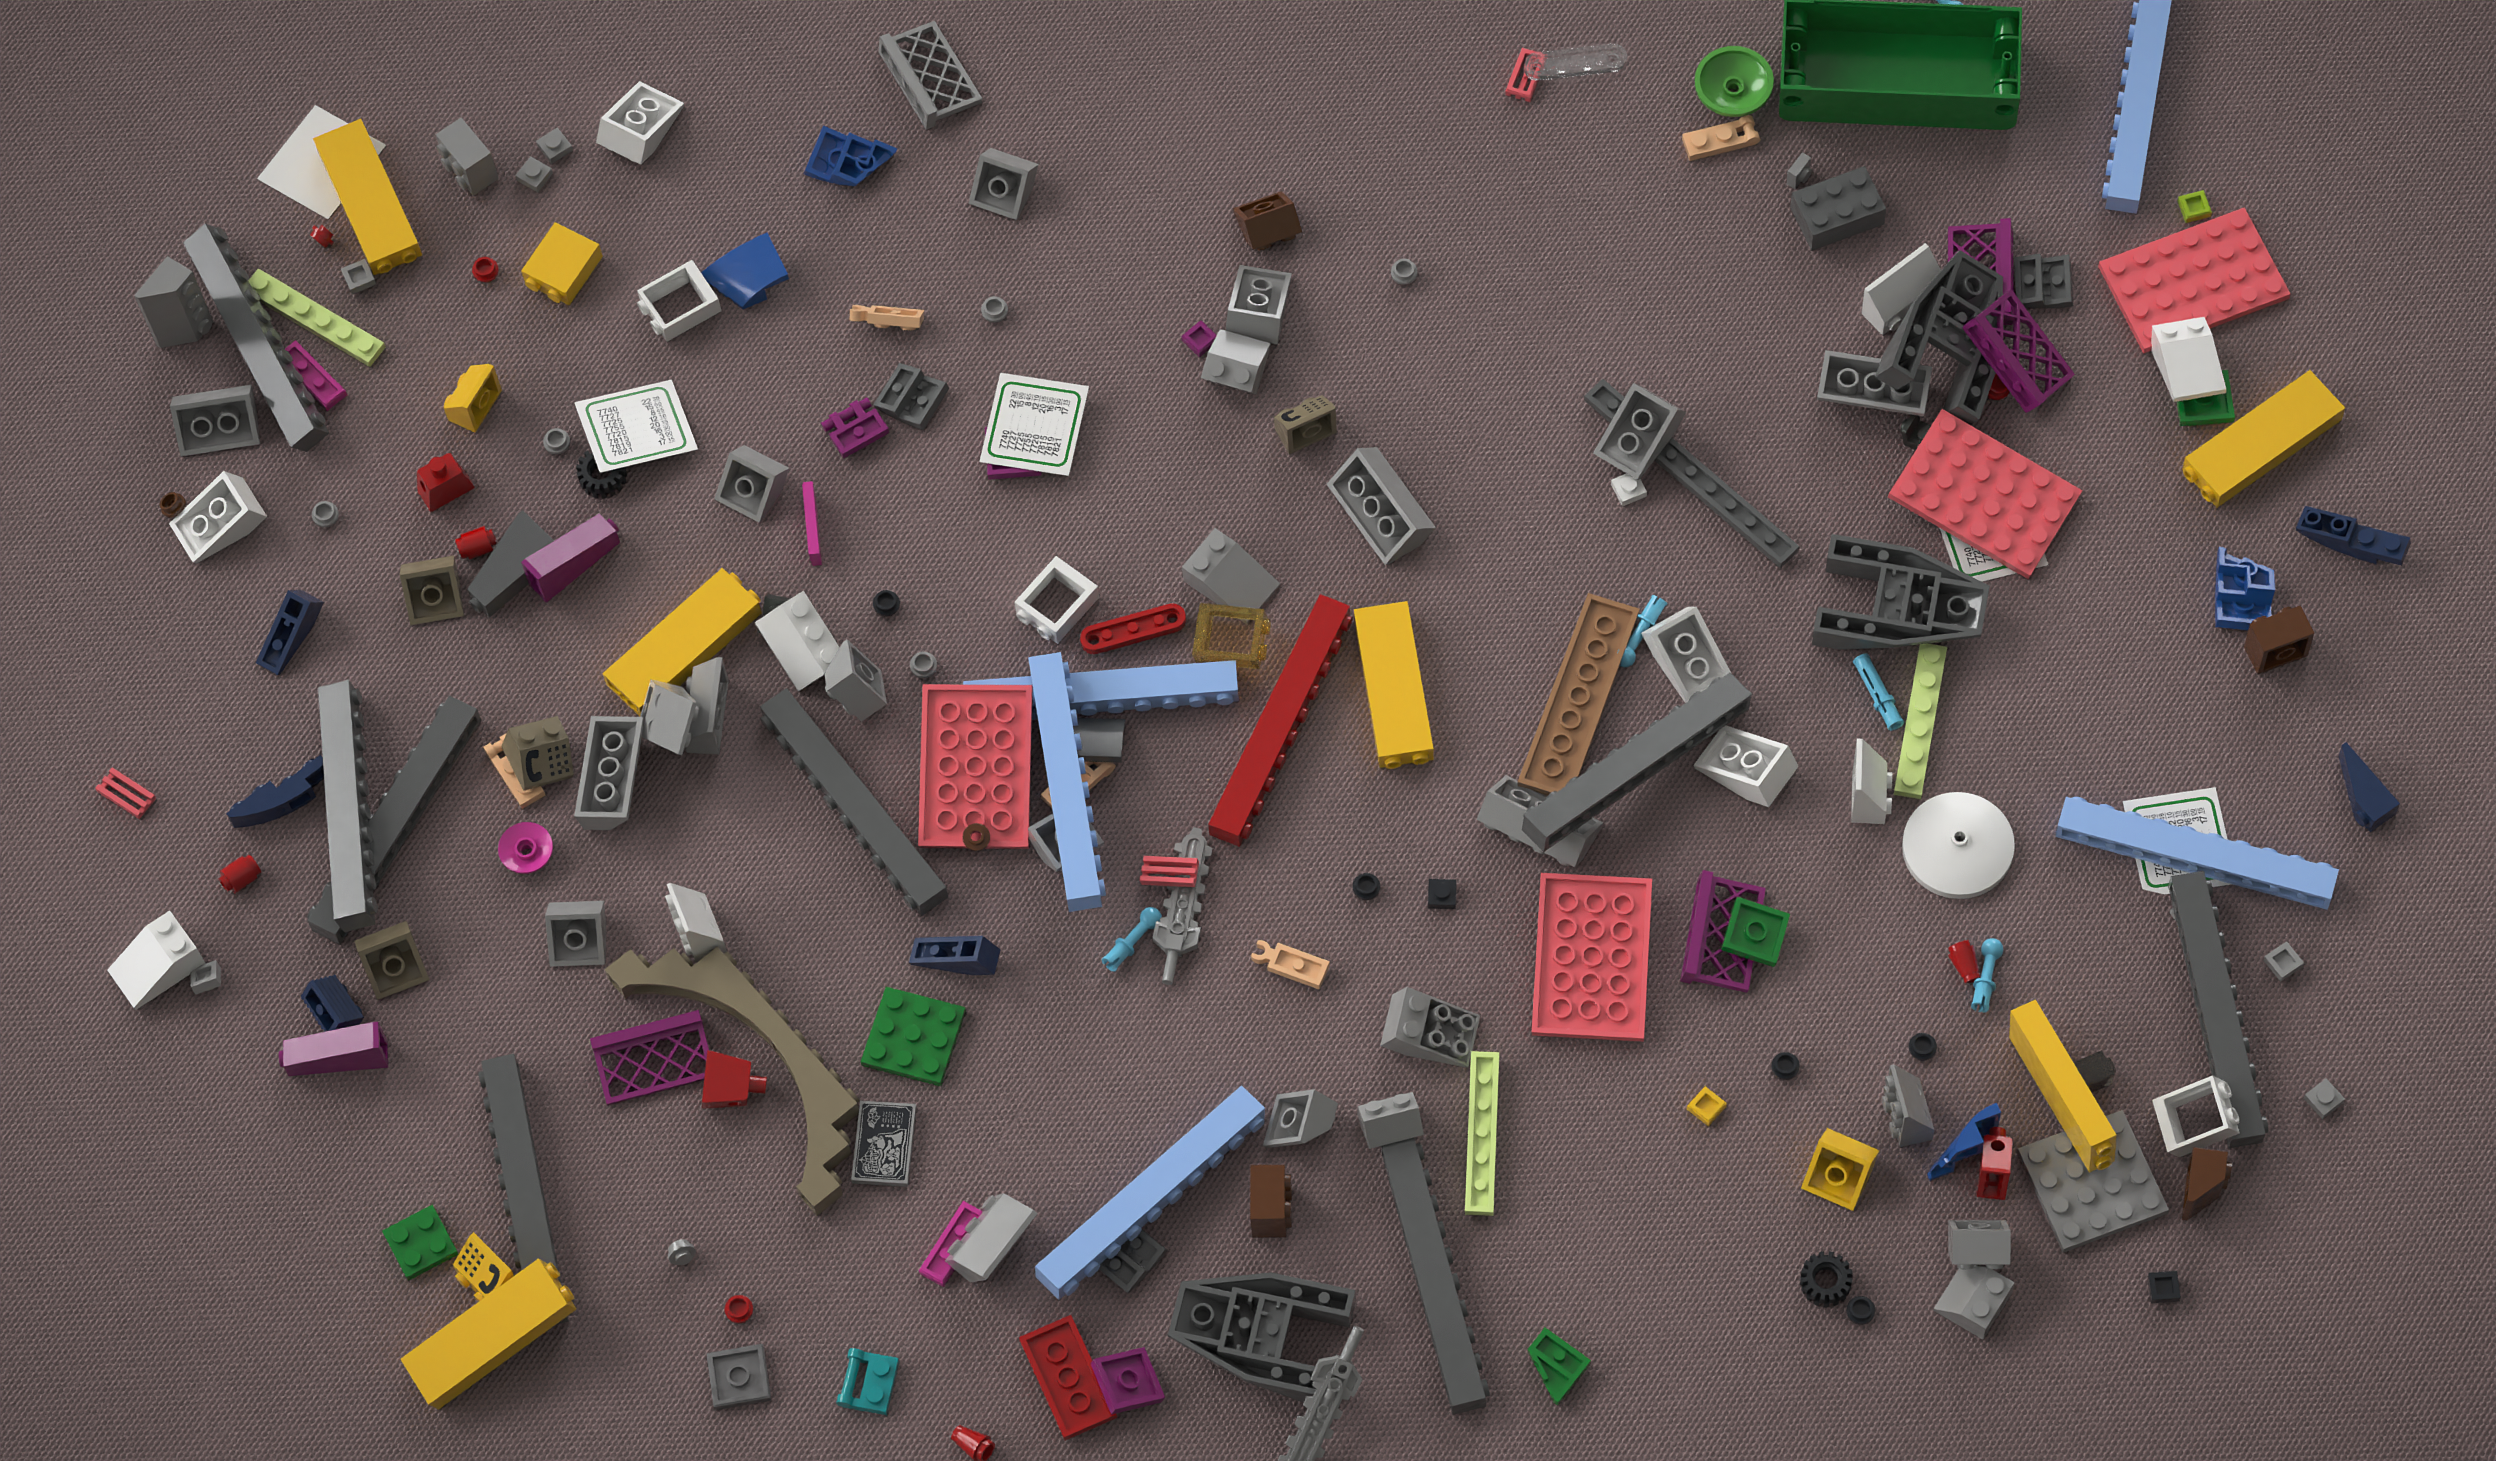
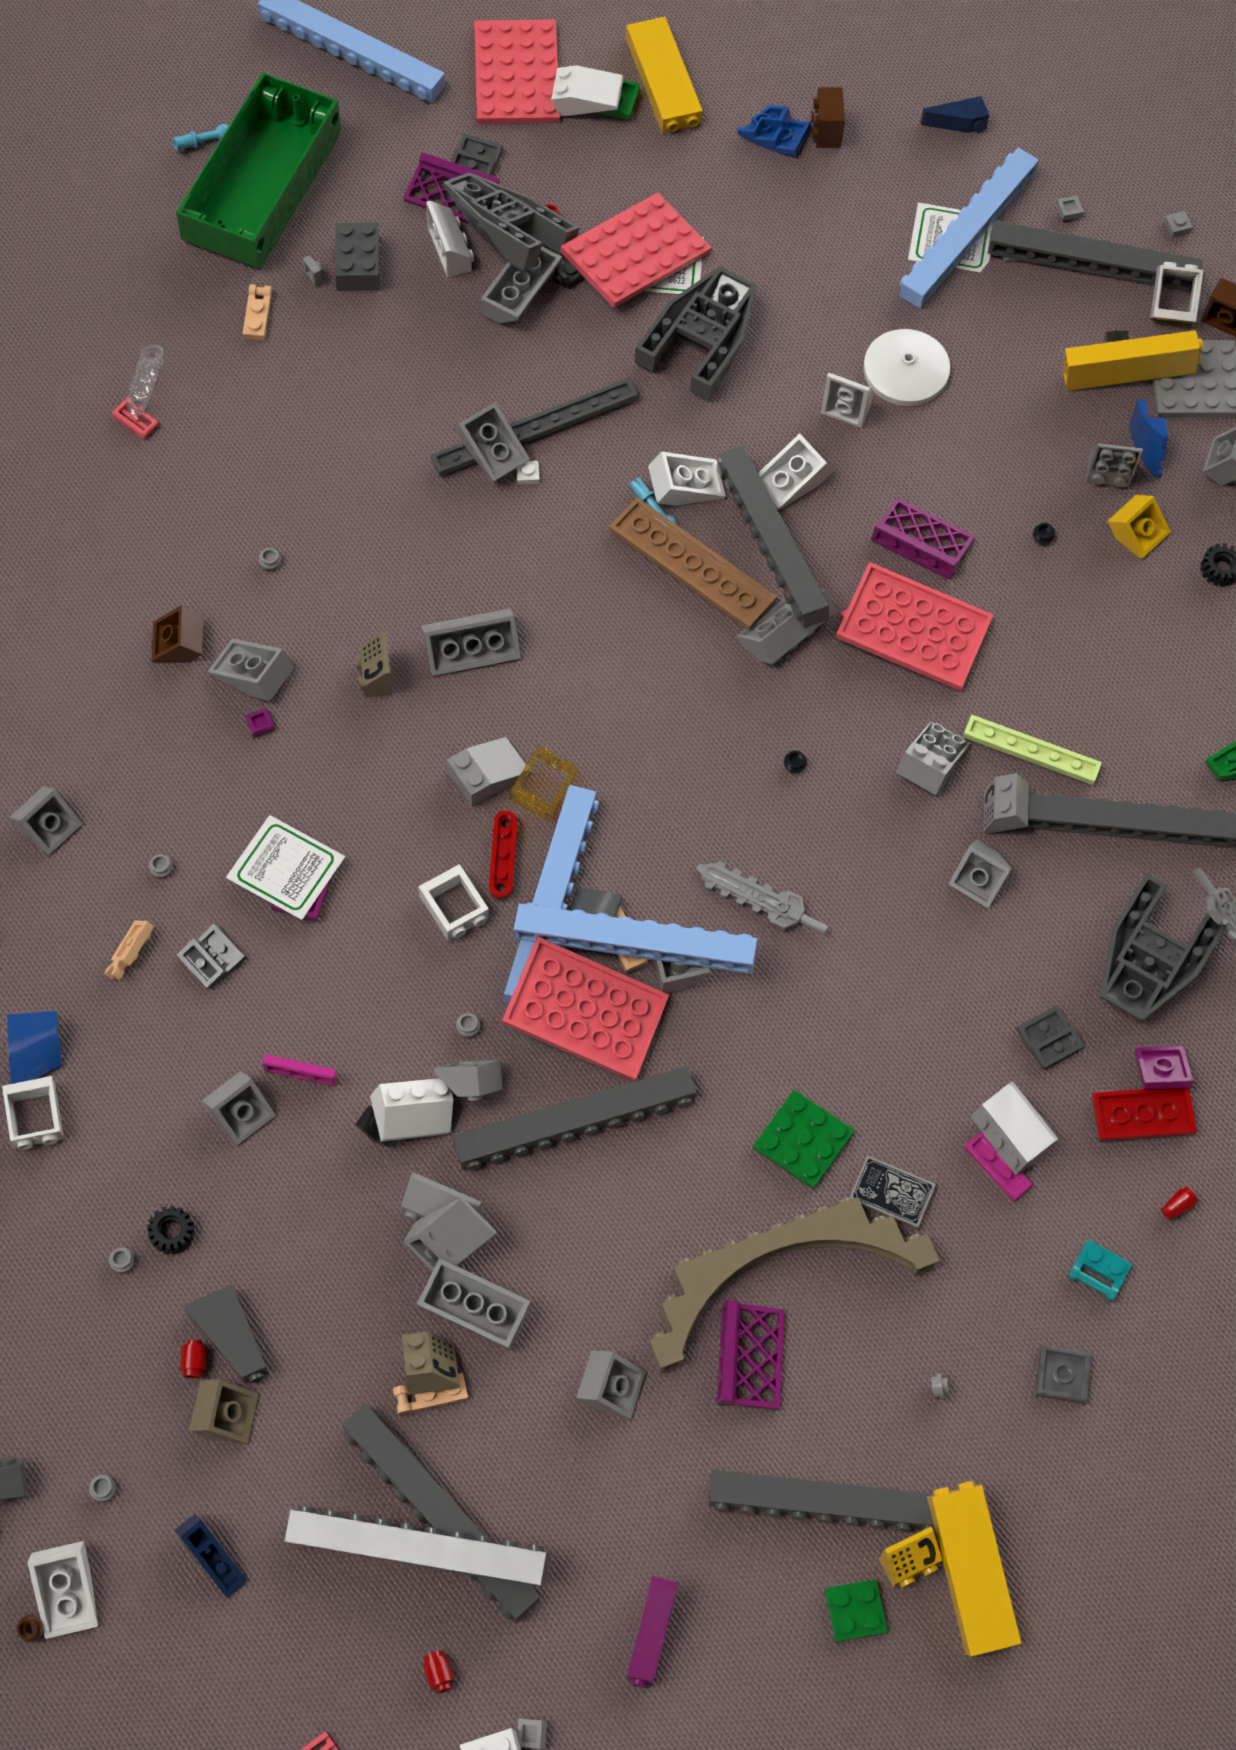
camera: 80 degrees left, 0 degrees up
(271, 803) = (377, 1620): dark blue slope -> none
(331, 1004) = (607, 1621): dark blue brick -> none
(391, 960) = (576, 1555): dark tan slope -> none
(442, 481) = (121, 1368): red torso -> none
(473, 397) = (46, 1317): yellow slope -> none
(521, 837) = (508, 1392): dark pink dish -> none
(569, 556) = (245, 1278): magenta slope -> none
(635, 426) = (139, 1186): white sticker -> none
(684, 638) = (368, 1210): yellow brick -> none
(694, 921) = (646, 1279): white slope -> none
(729, 1081) = (799, 1298): red torso -> none
(738, 1309) = (1004, 1355): red plate -> none
(857, 433) = (229, 1007): magenta plate -> none
(886, 603) = (398, 1036): black plate -> none
(956, 954) = (744, 1082): dark blue slope -> none
(976, 845) = (645, 1033): reddish brown plate -> none
(1124, 947) = (763, 927): medium azure pin -> none
(1150, 1192) = (1012, 998): light blue brick -> none
(1173, 867) = (739, 879): coral tile -> none
(1236, 361) = (299, 698): light grey slope -> none
(1270, 1201) = (1047, 912): reddish brown brick -> none
(1280, 720) = (630, 774): red brick -> none
(1292, 964) = (843, 834): light nougat plate -> none
(1393, 685) = (631, 684): yellow brick -> none
(1442, 894) = (820, 712): black plate -> none
(1706, 1106) = (1057, 595): yellow tile -> none
(1734, 69) = (218, 273): bright green dish -> none
(1755, 931) = (934, 512): green plate -> none
(1883, 701) = (792, 370): medium azure pin -> none
(1920, 721) = (795, 353): yellowish green plate -> none
(1922, 1046) = (1058, 443): black plate -> none
(1965, 961) = (1001, 393): red cone -> none
(1992, 950) = (996, 376): medium azure pin -> none
(1995, 1165) = (1178, 426): red torso -> none
(2006, 361) = (538, 193): magenta fence -> none
(2194, 206) = (457, 50): lime tile -> none
(2350, 538) = (765, 52): dark blue slope -> none

